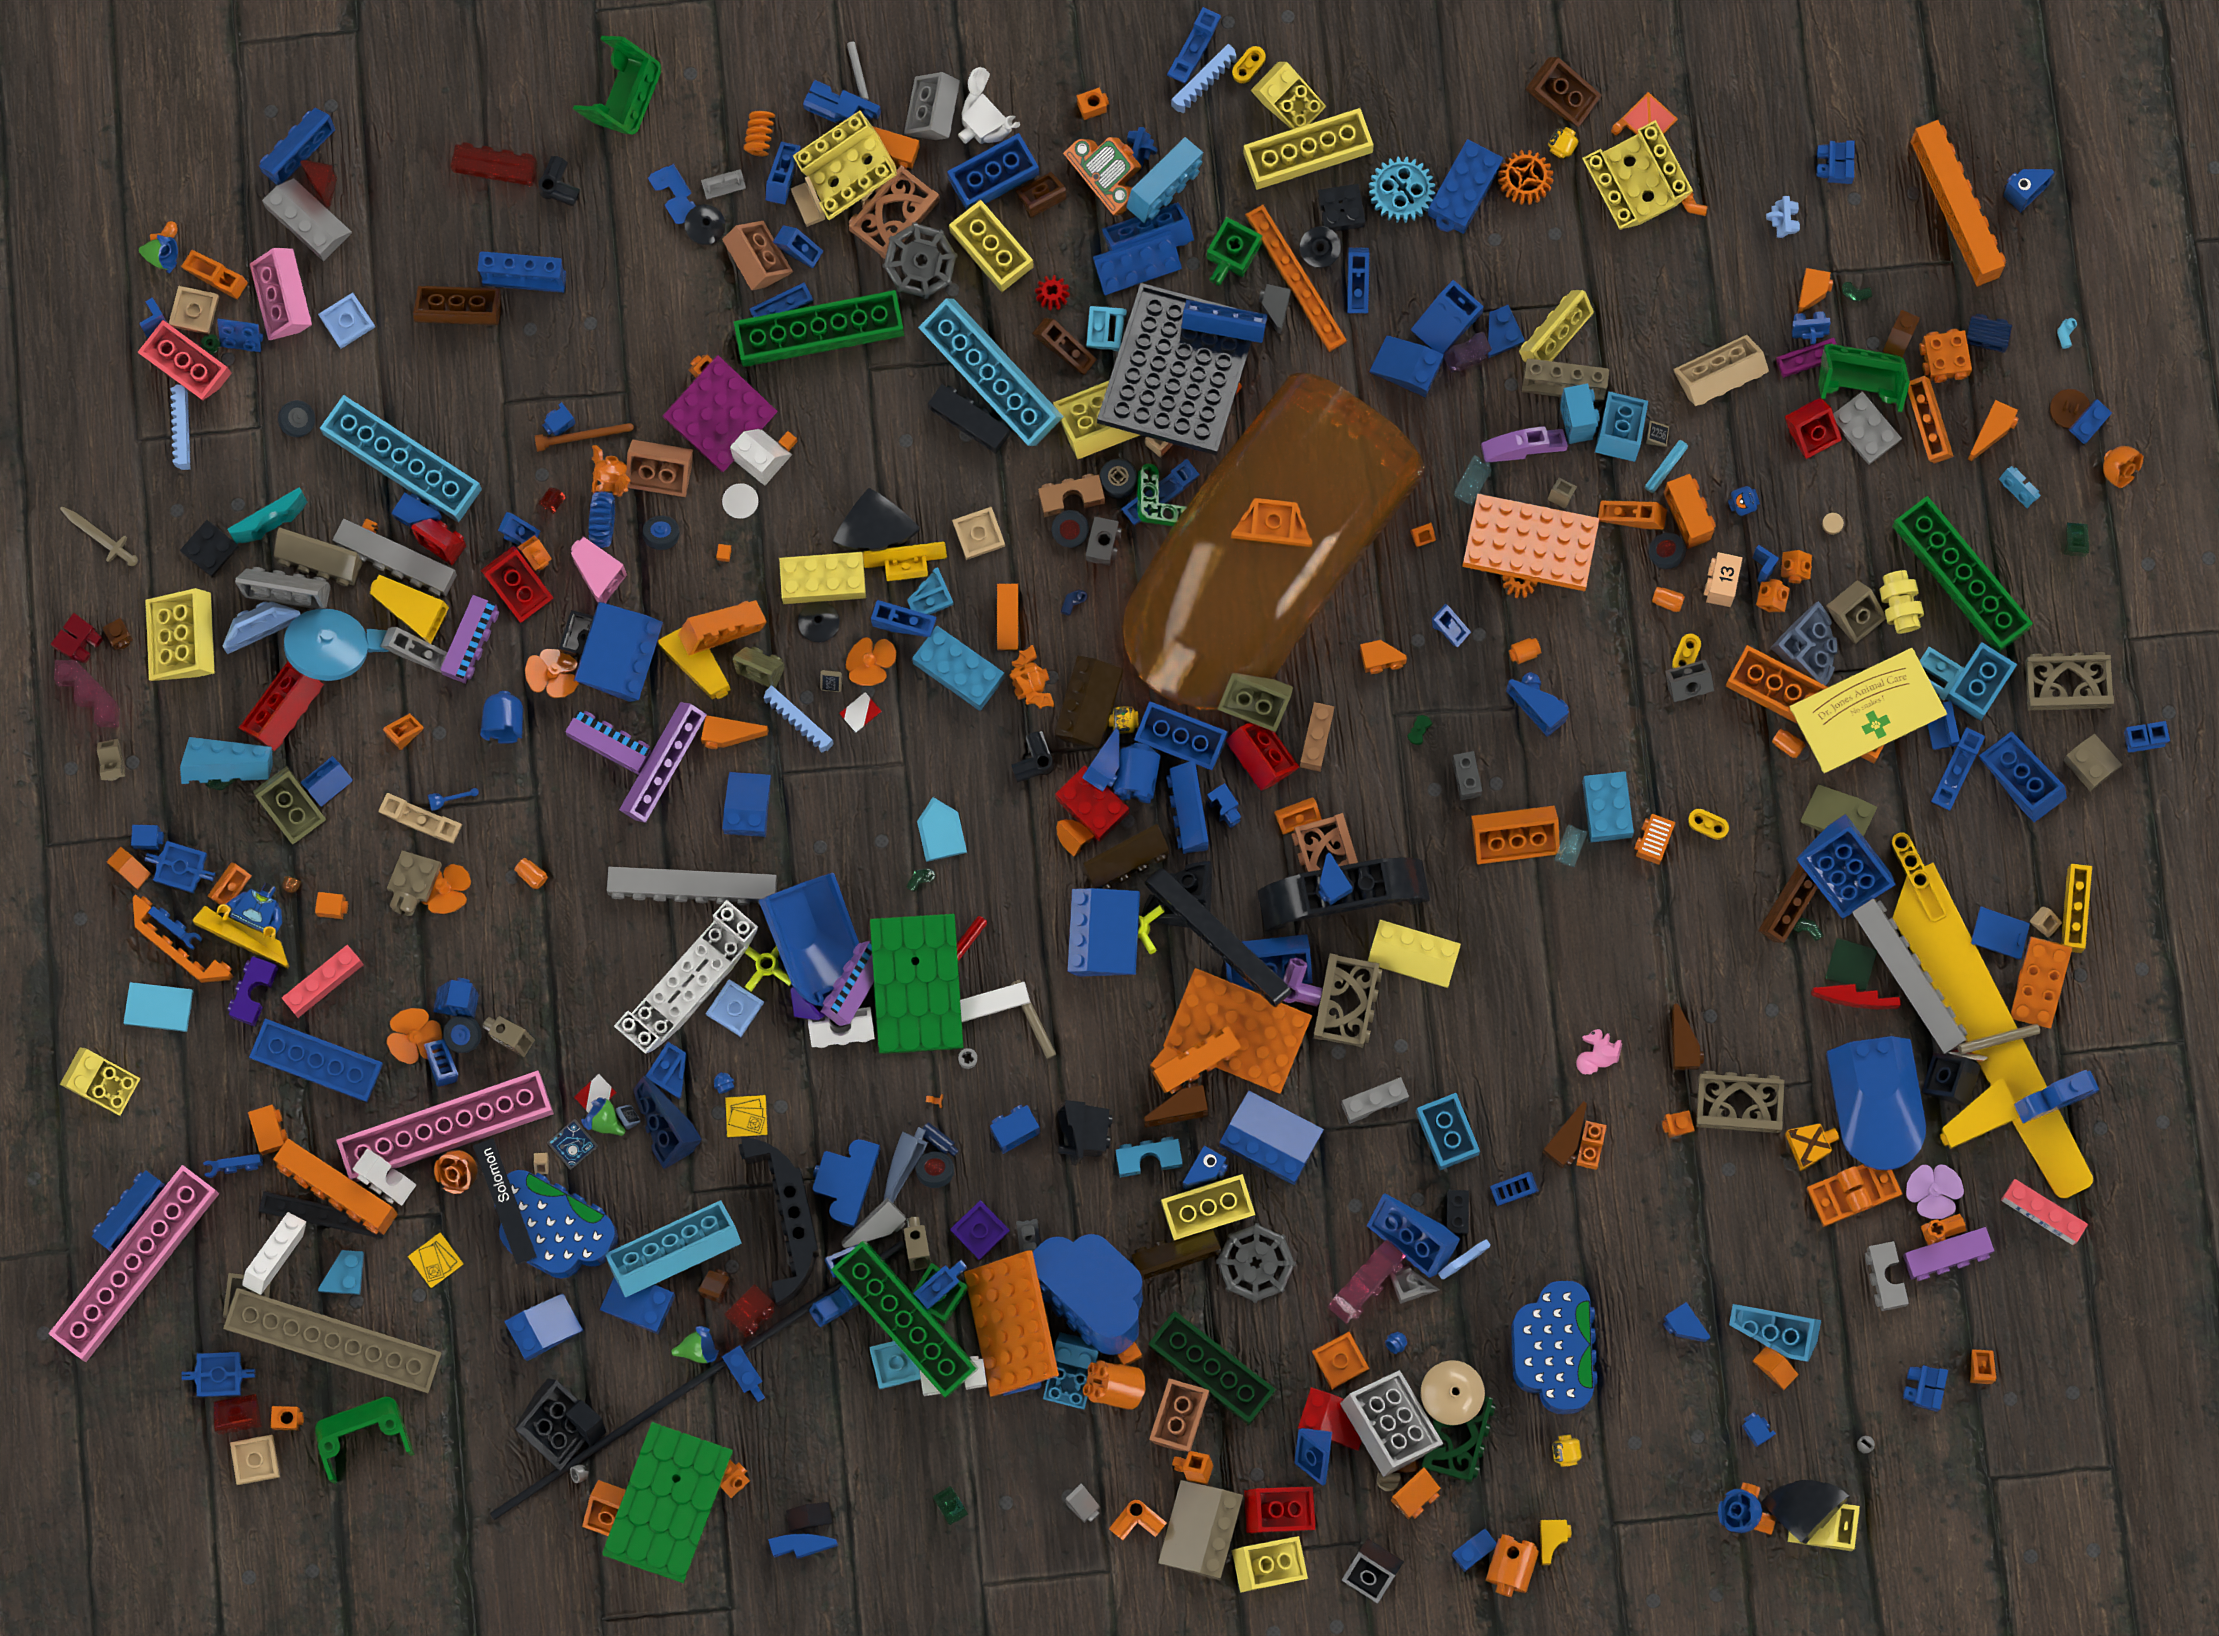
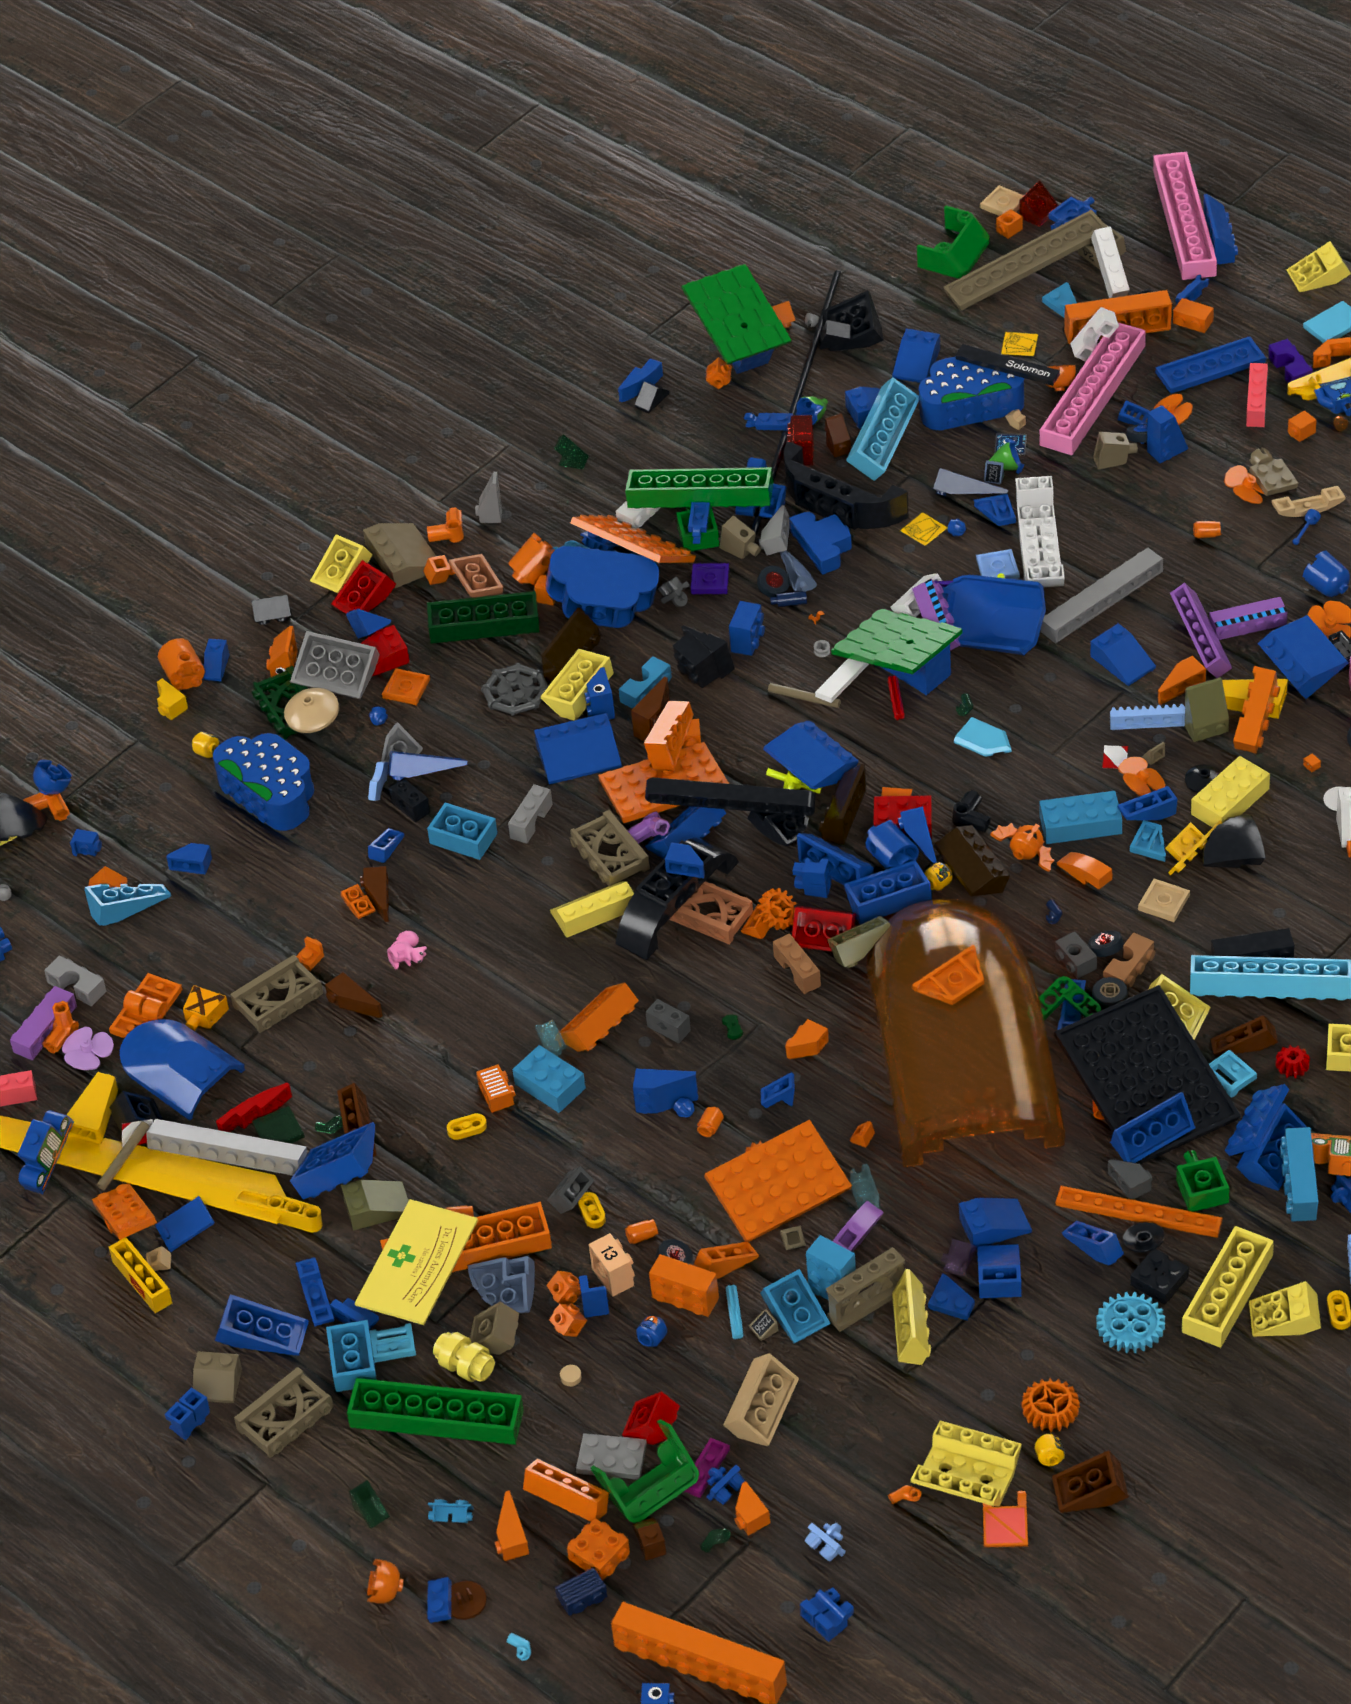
camera: 140 degrees right, 30 degrees down
(596, 1088) = (1029, 470): white sticker -> none
(1281, 801) = (777, 908): none -> orange gear
(1367, 1282) = (429, 725): clear pink brick -> none
(1464, 187) = (1086, 1360): blue piece -> none

